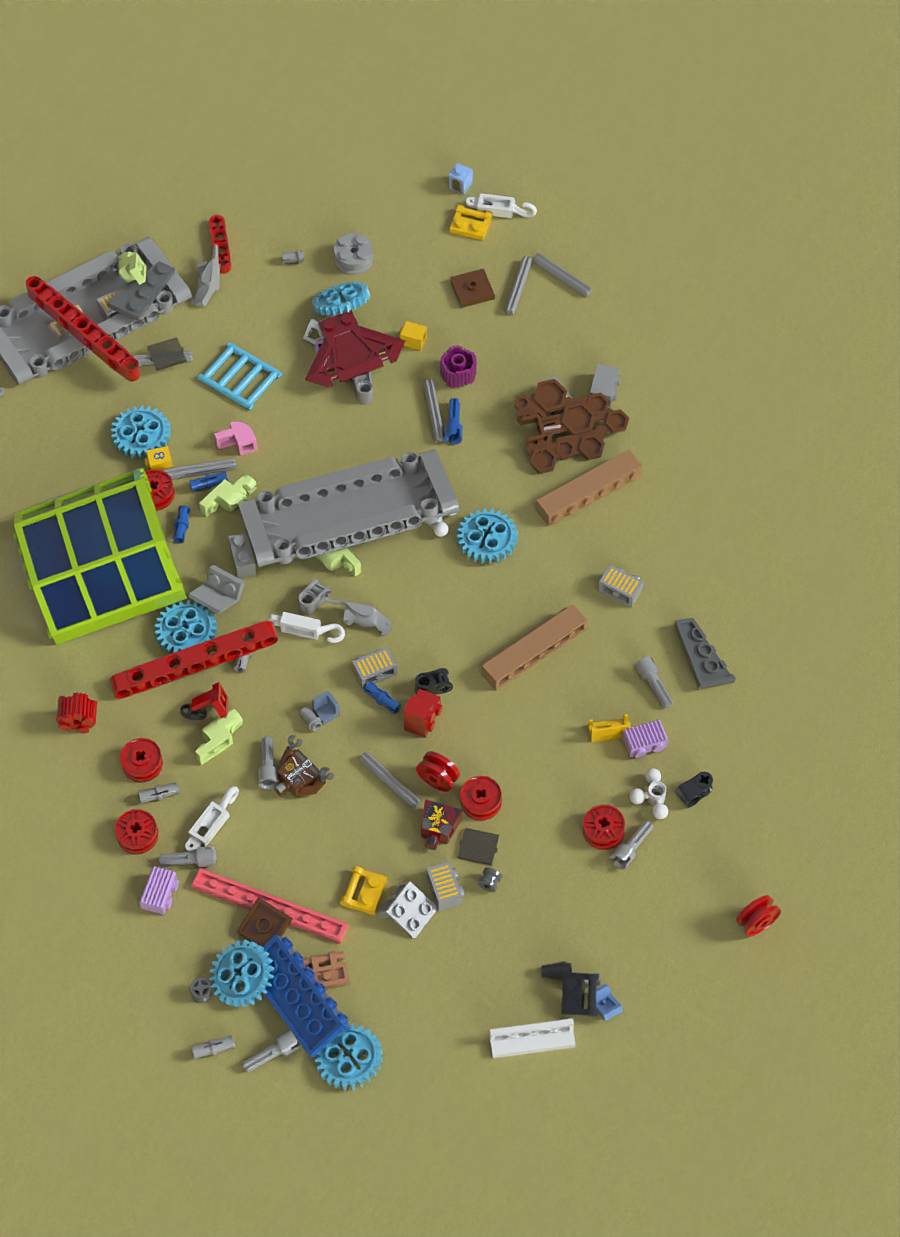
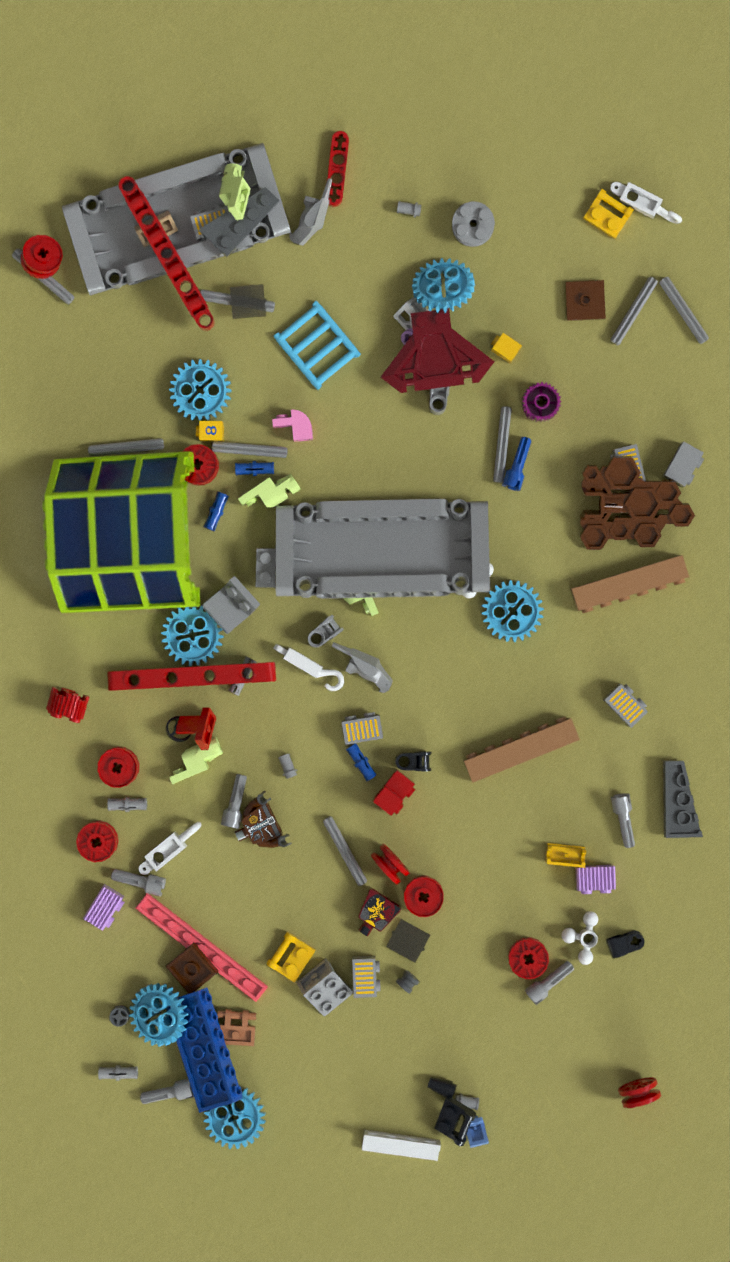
camera: 15 degrees right, 30 degrees up
(325, 707) = (304, 760): sand blue panel -> none
(460, 178) = (613, 155): light blue brick -> none

